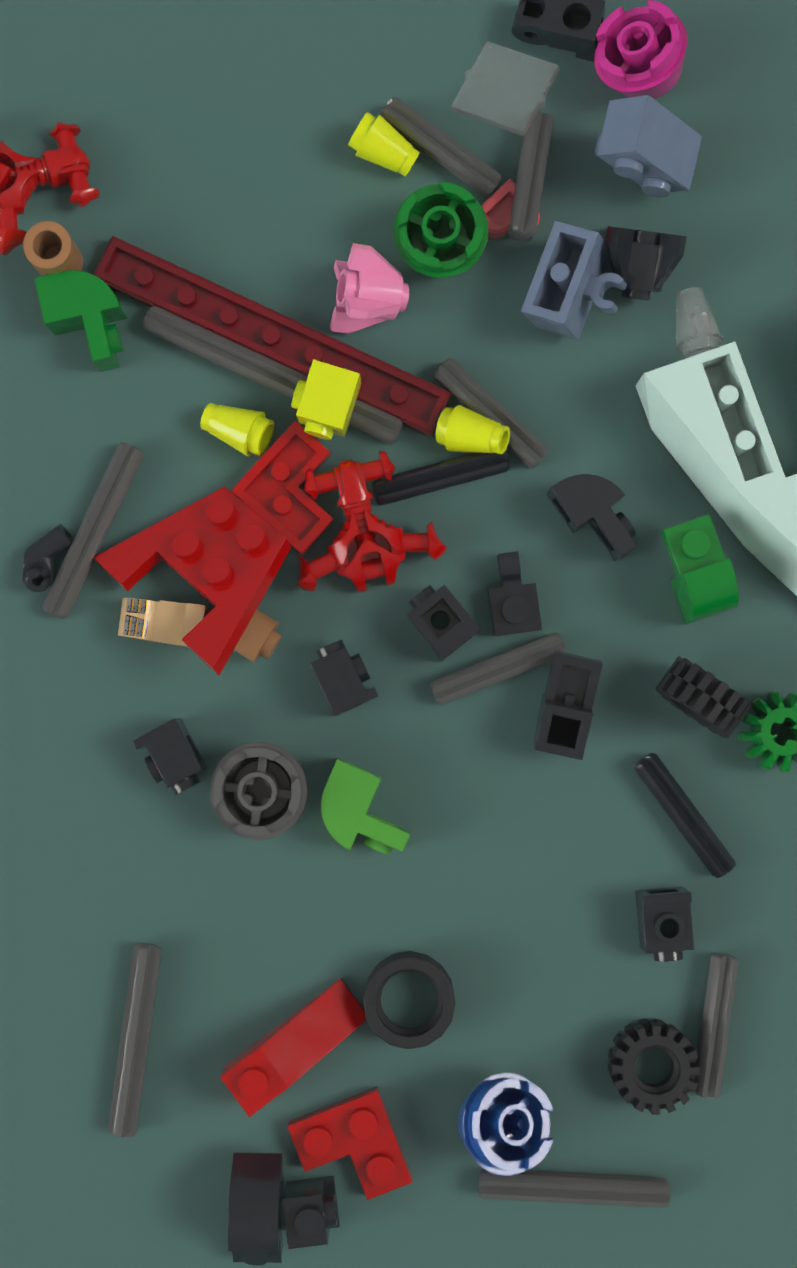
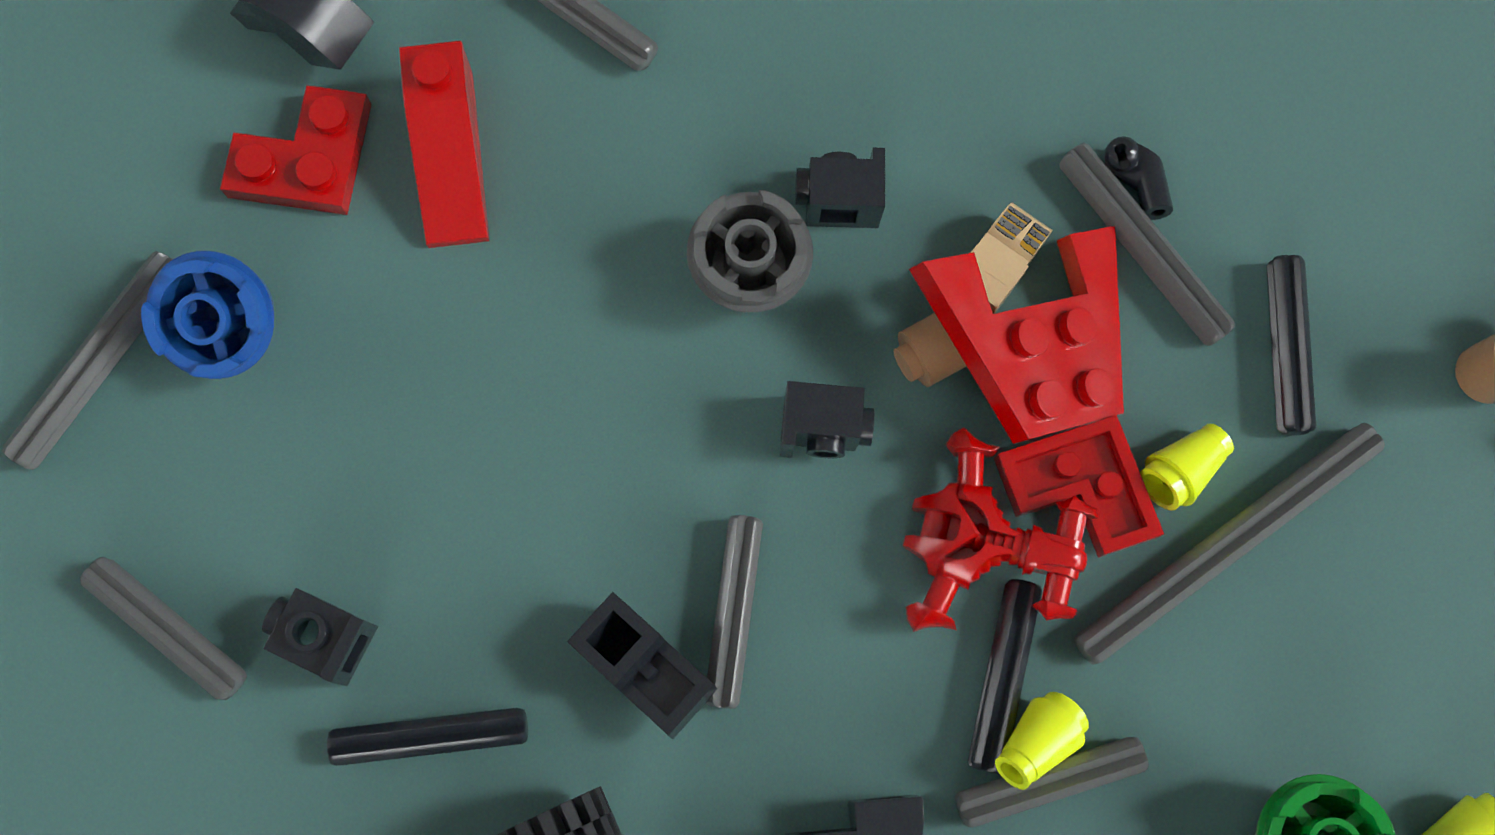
camera: 110 degrees right, 10 degrees down
(83, 301) = (1428, 363): green brick -> none
(112, 399) = (1291, 345): none -> black axle
(267, 332) = (1276, 571): dark red tile -> none
(310, 1211) = (261, 65): black brick -> none
(326, 399) = (1174, 581): neon yellow brick -> none
(346, 807) = (668, 341): bright green brick -> none
(366, 291) = (1284, 711): bright pink brick -> none
(417, 1036) = (399, 252): black tyre -> none
(460, 627) = (845, 551): black brick -> none
(514, 605) = (799, 674): black plate -> none
(674, 1086) = (133, 504): black tyre -> none

